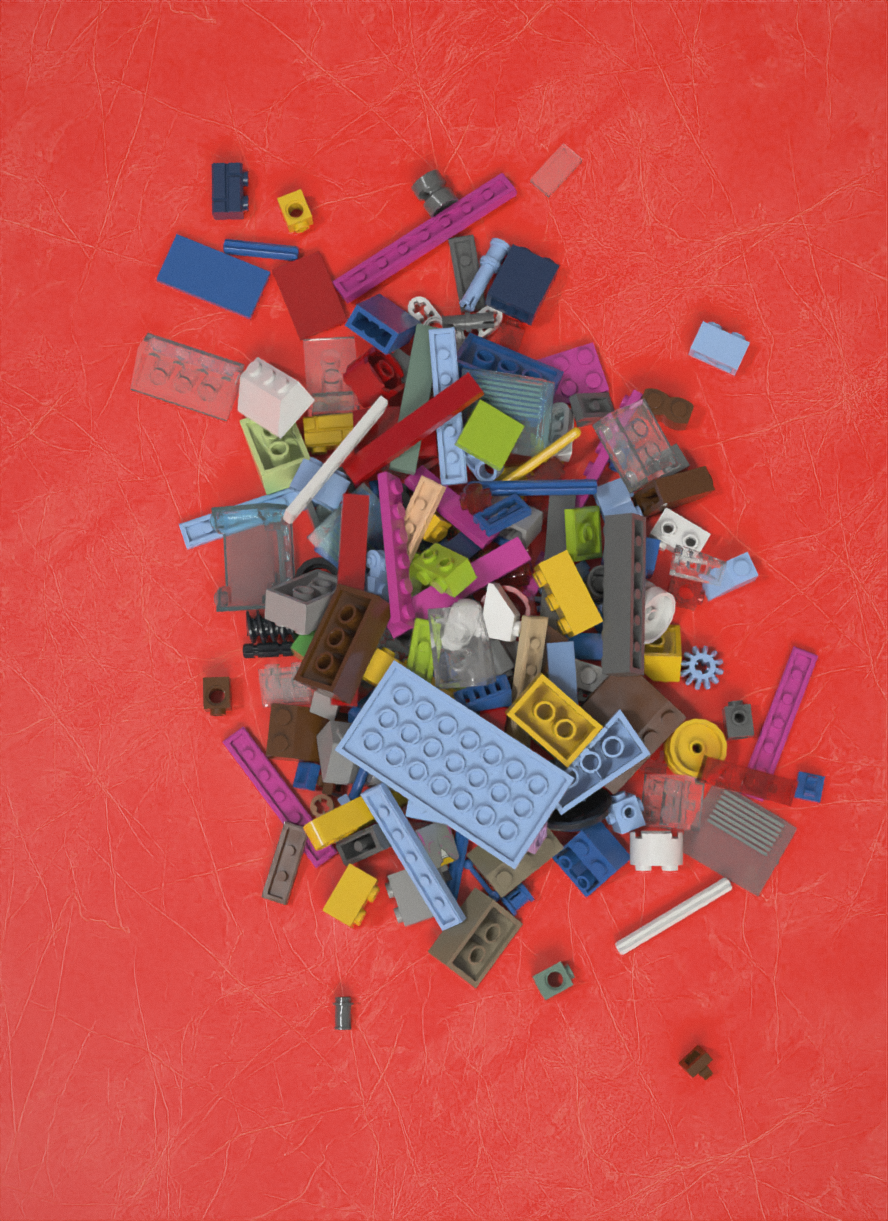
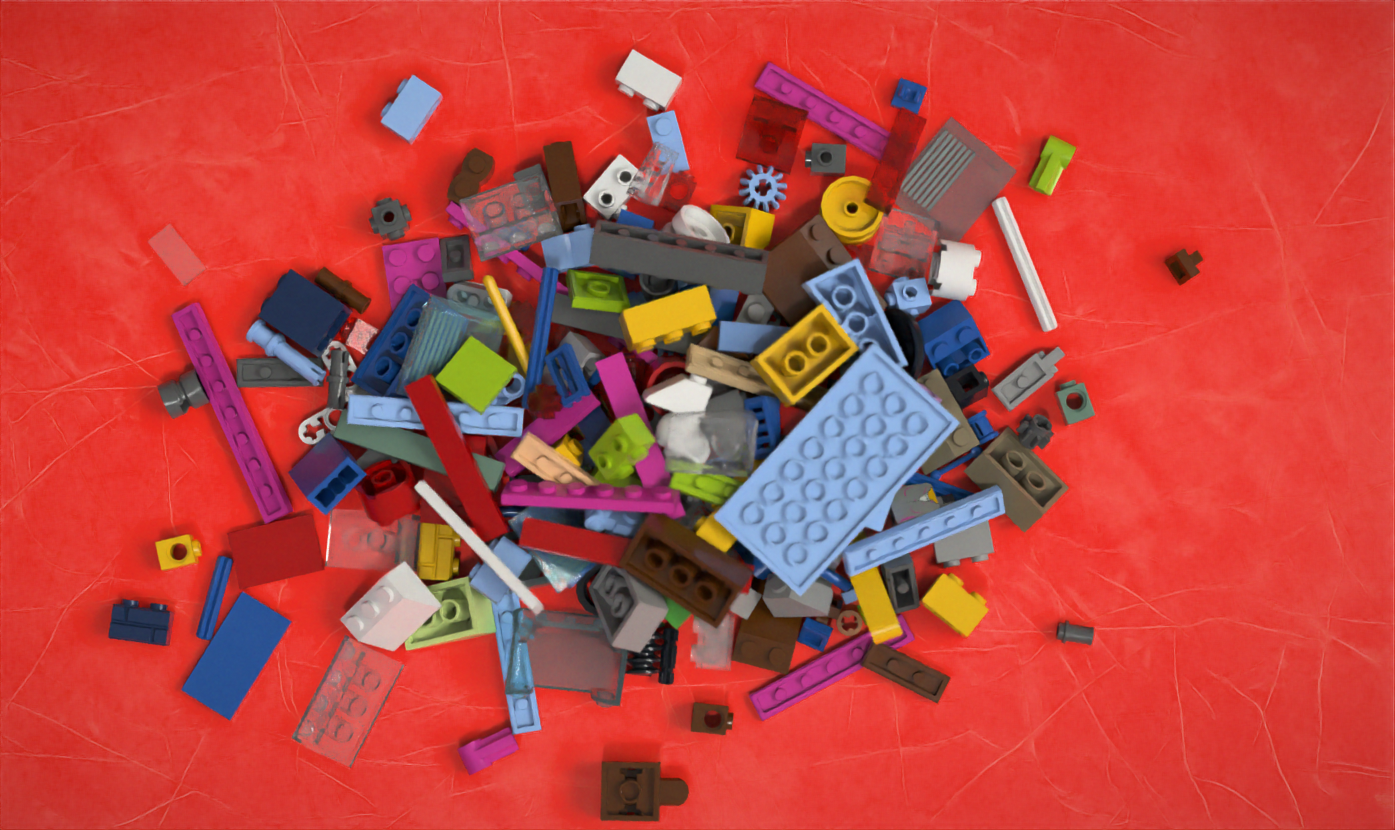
camera: 75 degrees left, 5 degrees up
(145, 639) = (638, 791): none -> reddish brown brick
(158, 500) = (483, 752): none -> dark pink piece
(521, 947) = (1034, 431): none -> dark grey gear
(548, 315) = (342, 290): none -> reddish brown pin
(558, 875) = (970, 379): none -> black brick
(569, 934) = (1027, 378): none -> light grey hinge
(614, 352) = (394, 229): none -> dark grey brick
(752, 668) = (772, 134): none -> clear red slope
(774, 928) = (1053, 160): none -> lime piece
(781, 550) = (648, 81): none -> white brick

